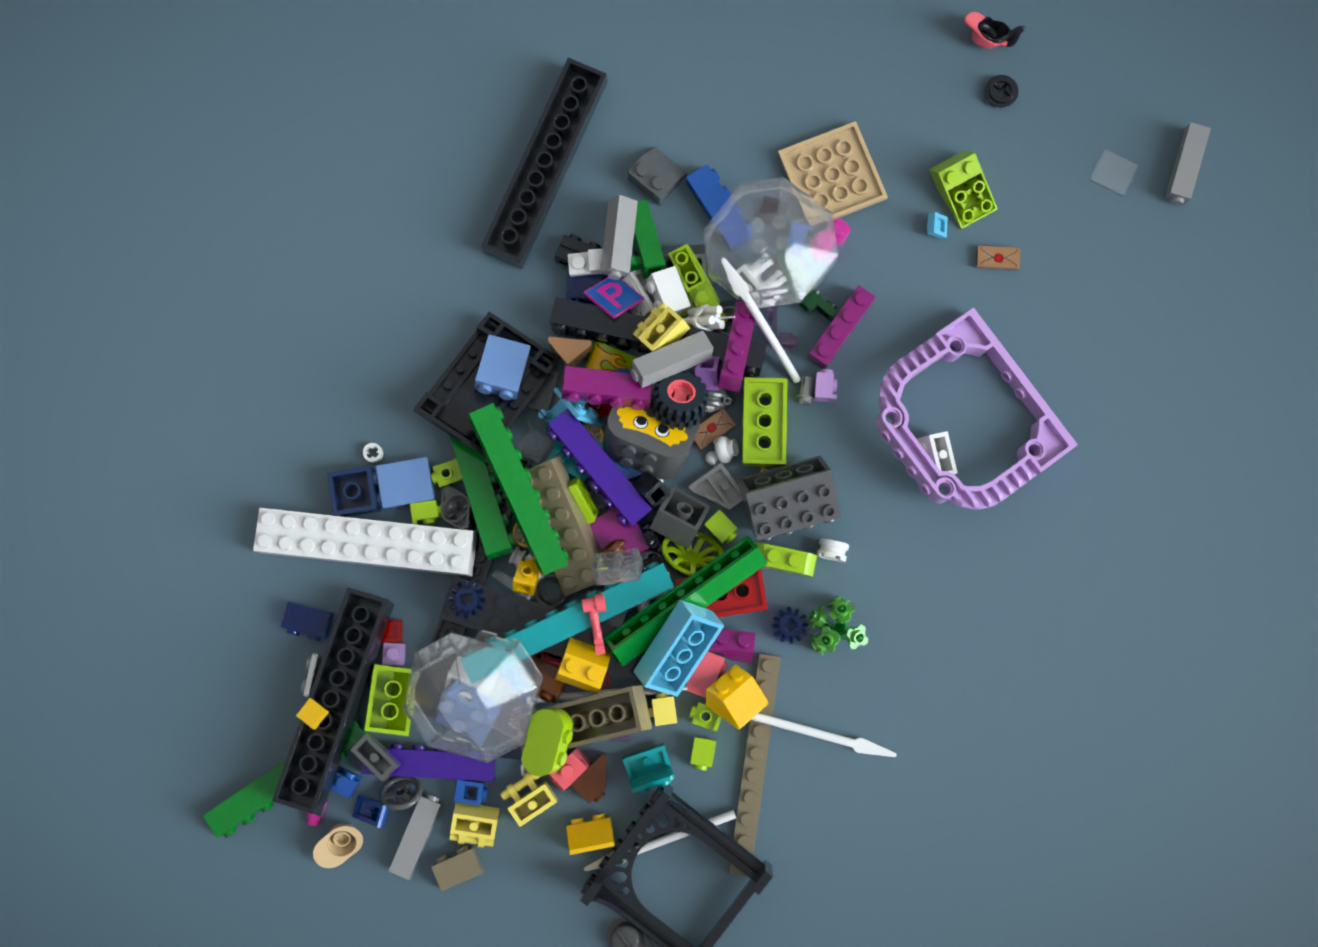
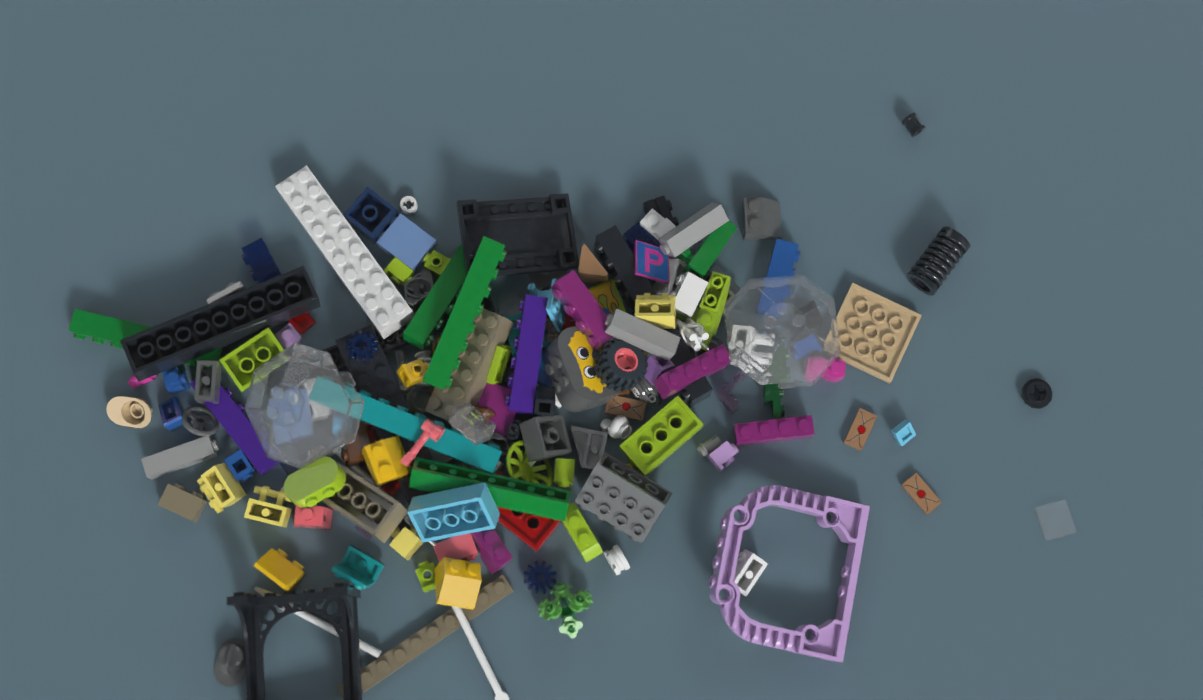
camera: 45 degrees right, 5 degrees down
(312, 713) = (199, 315): yellow tile -> none
(502, 367) = (537, 233): medium blue brick -> none
(544, 163) = (700, 141): black brick -> none
(593, 780) = (319, 539): reddish brown slope -> none
(702, 753) = (401, 596): lime brick -> none
(741, 288) = (731, 336): white piece -> none
(824, 65) = (938, 260): none -> black piece
(902, 257) = (860, 429): none -> medium nougat tile
(964, 188) = (945, 428): lime slope -> none
(991, 33) = (1068, 350): black hair -> none
(1187, 163) = (1109, 564): light grey brick -> none

